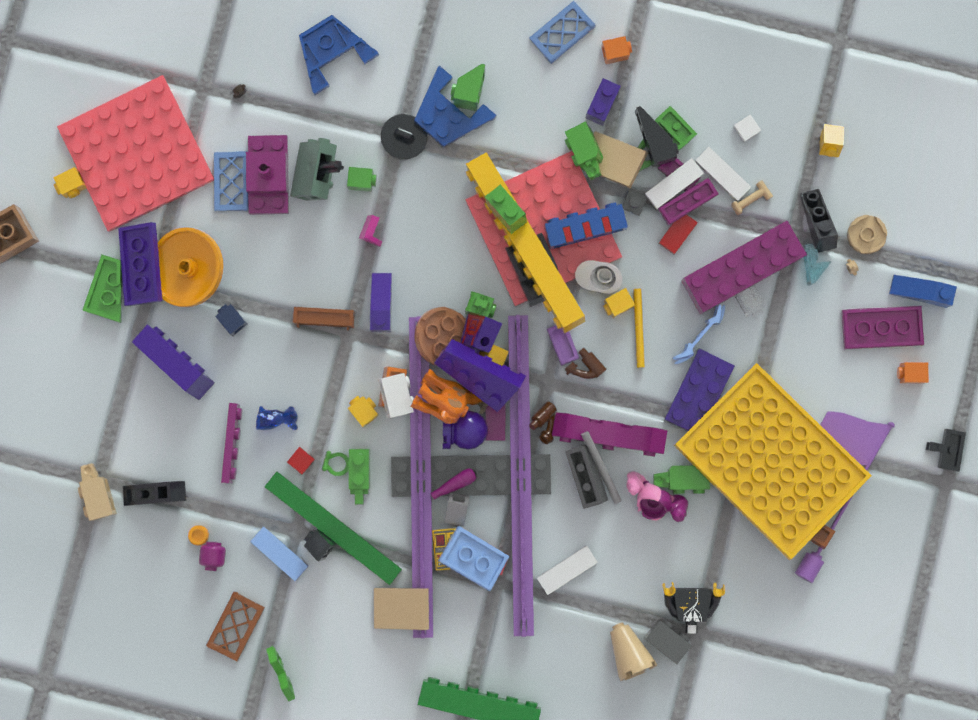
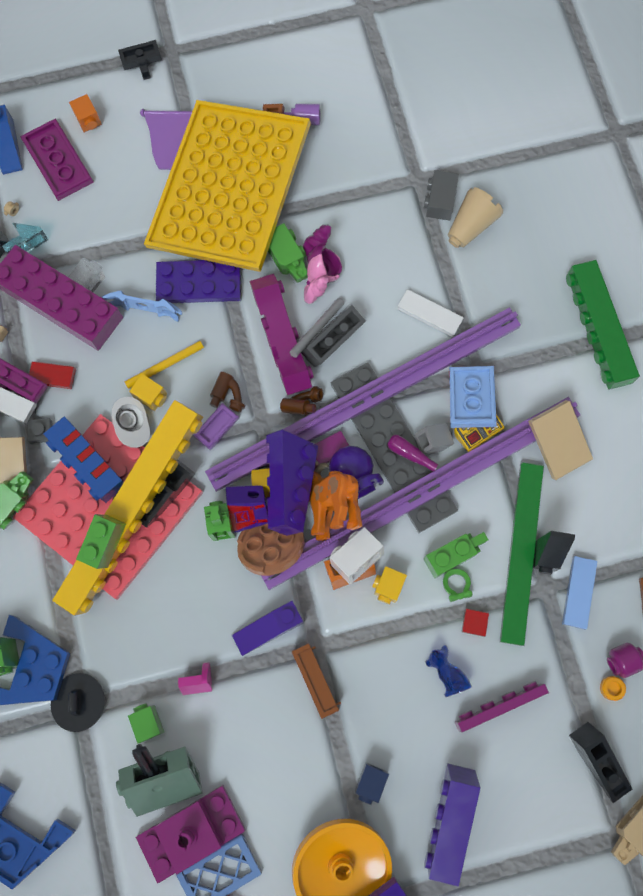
camera: 115 degrees left, 10 degrees down
(692, 604) = (395, 189): black torso -> none

